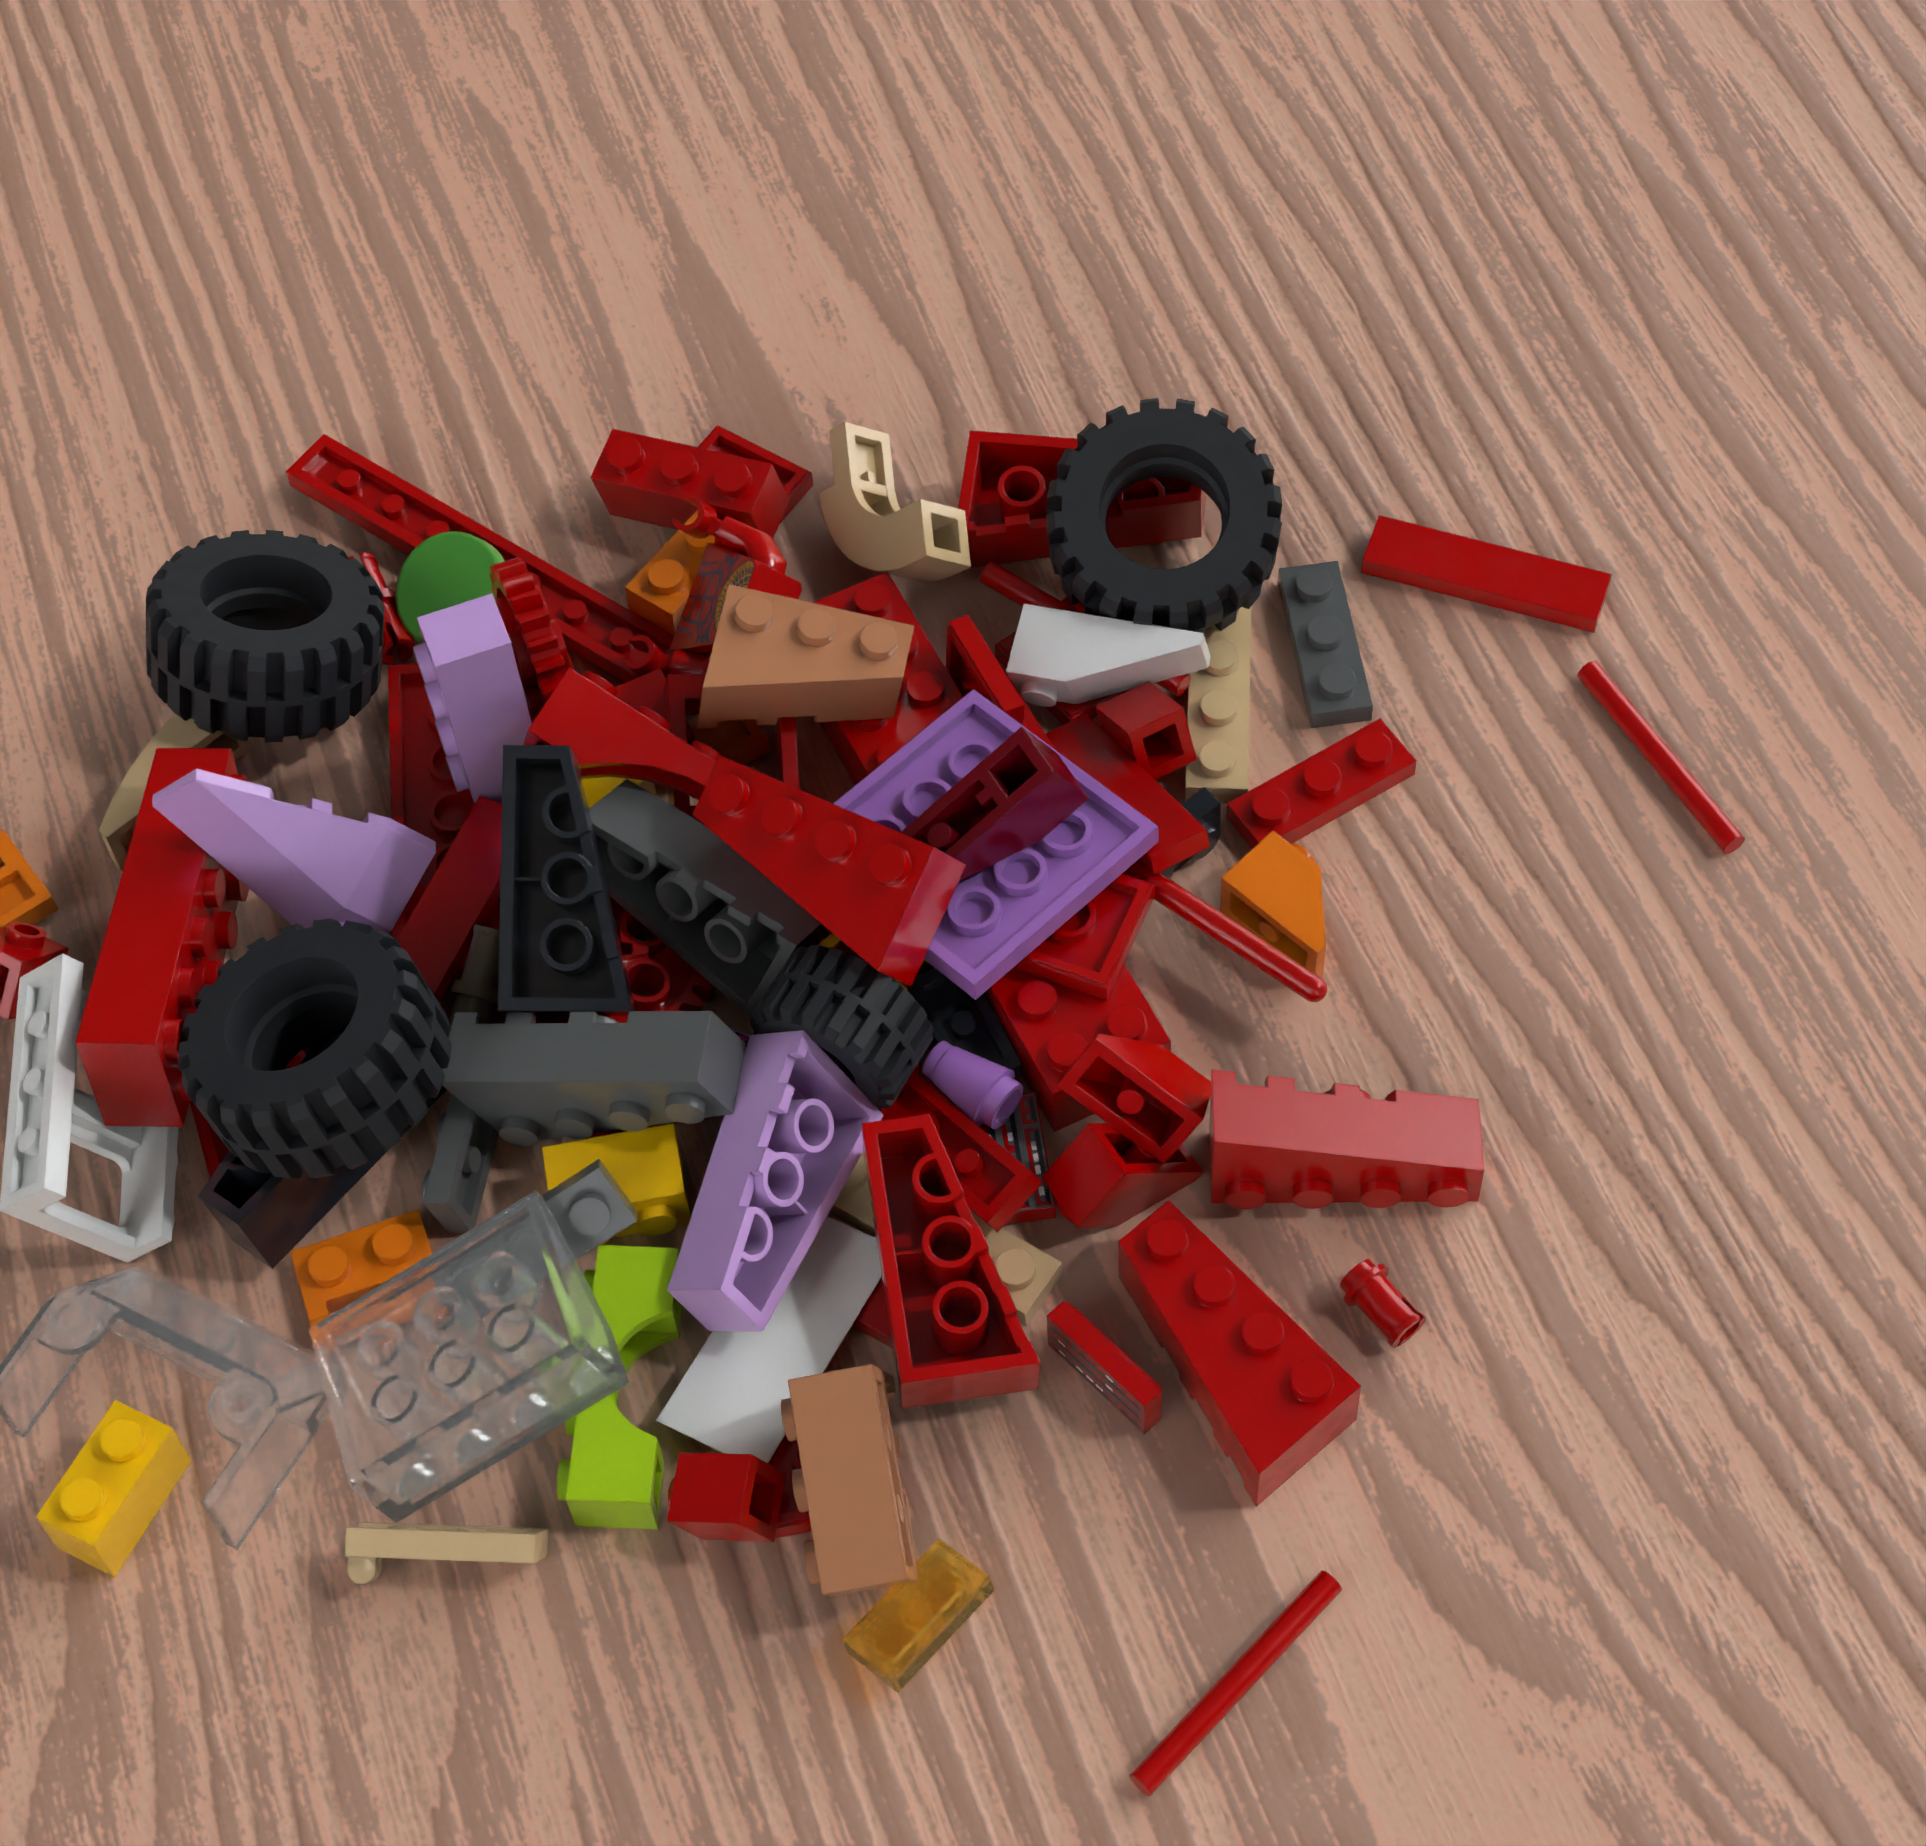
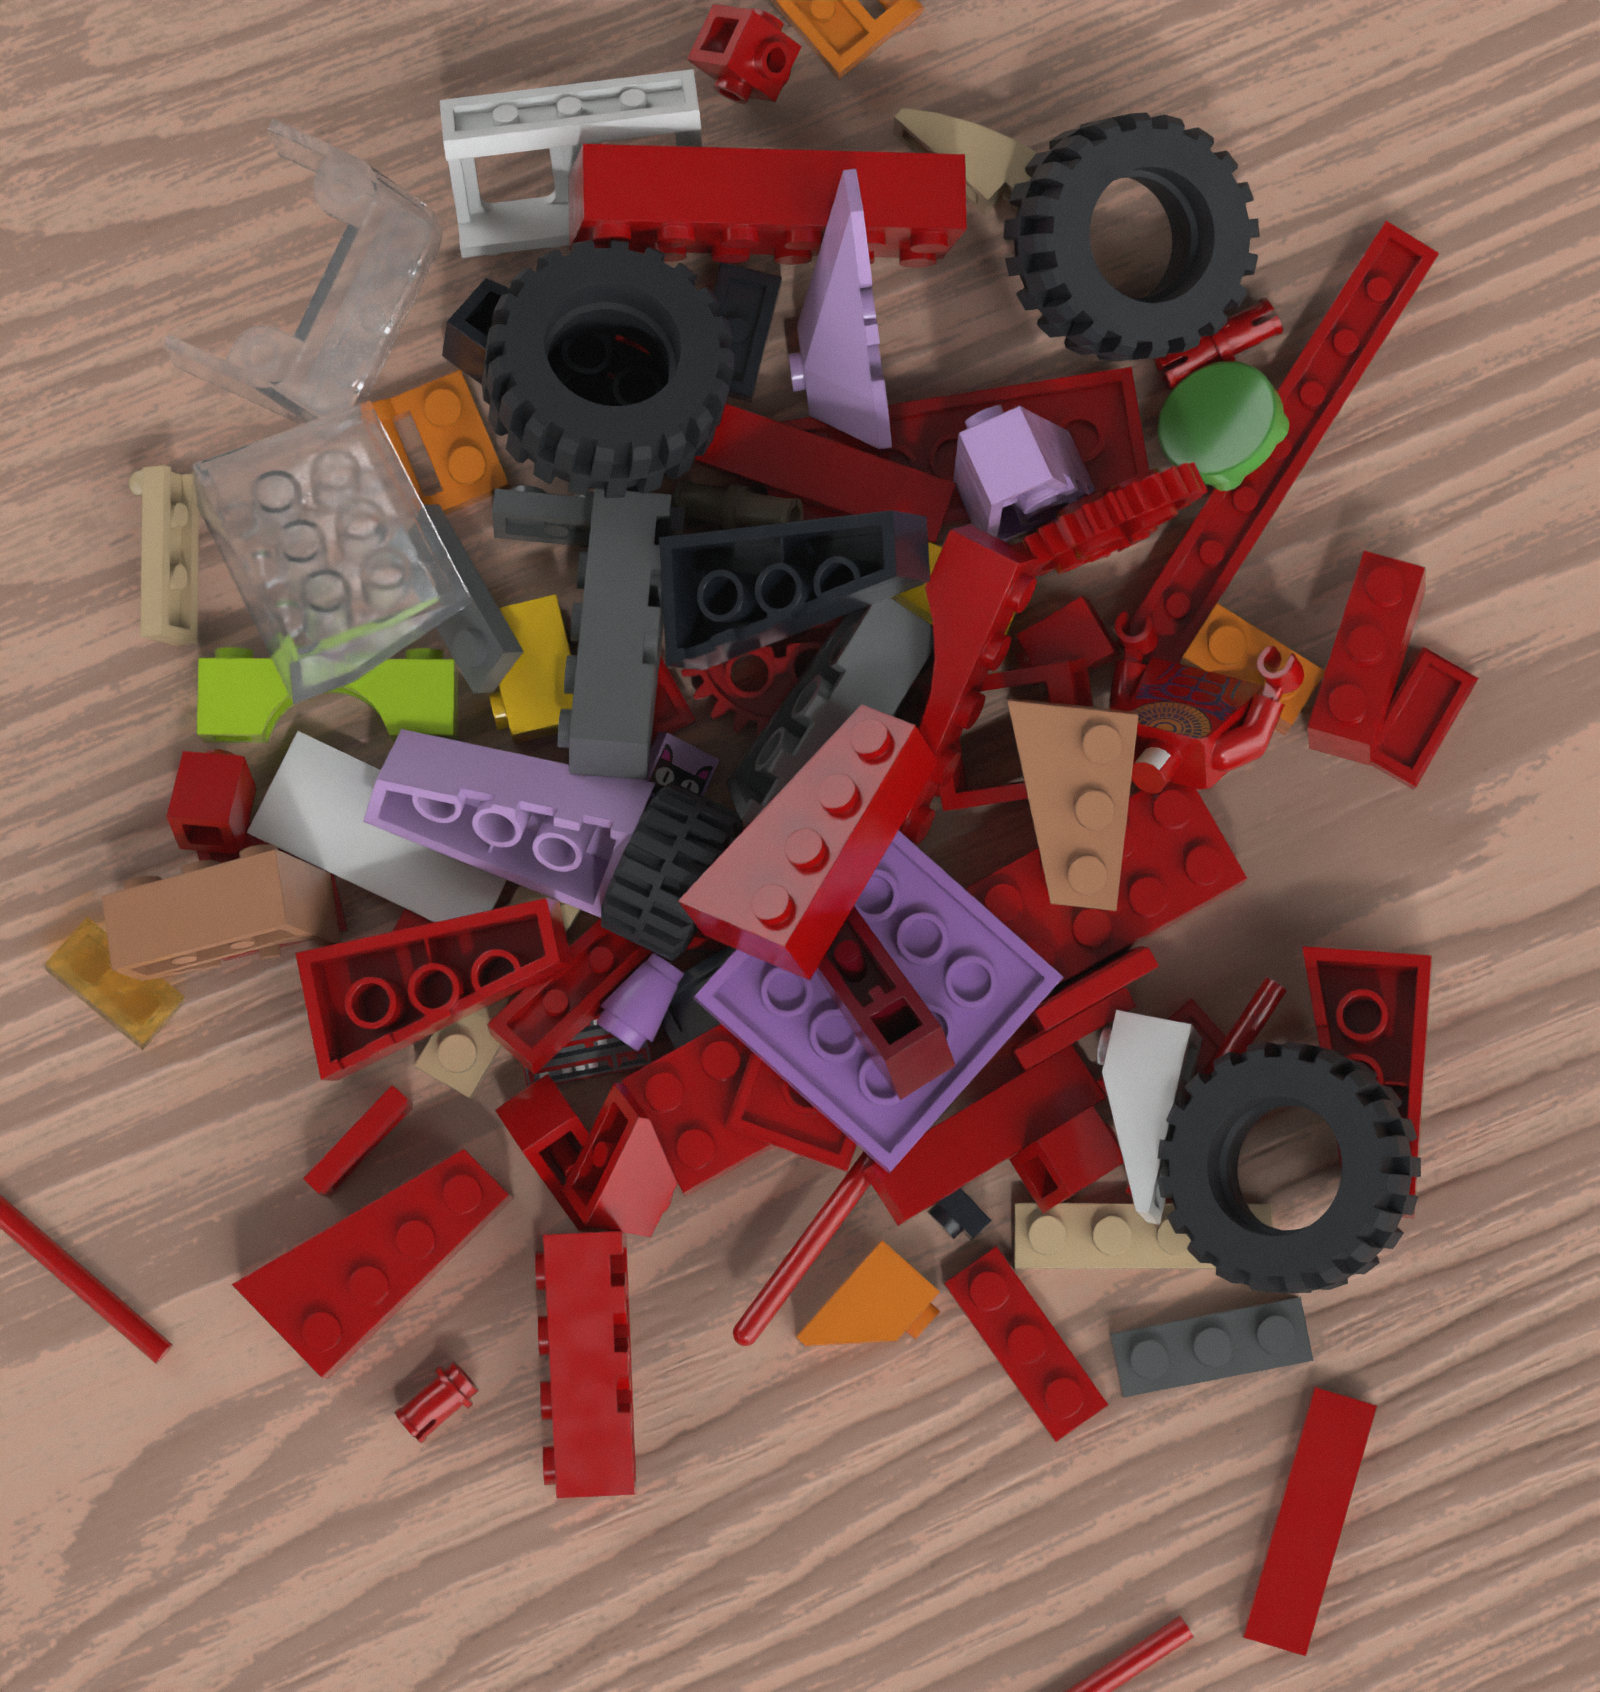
camera: 85 degrees right, 25 degrees up
(114, 1488) = (211, 249): yellow brick -> none
(869, 527) = (1322, 862): tan arch -> none

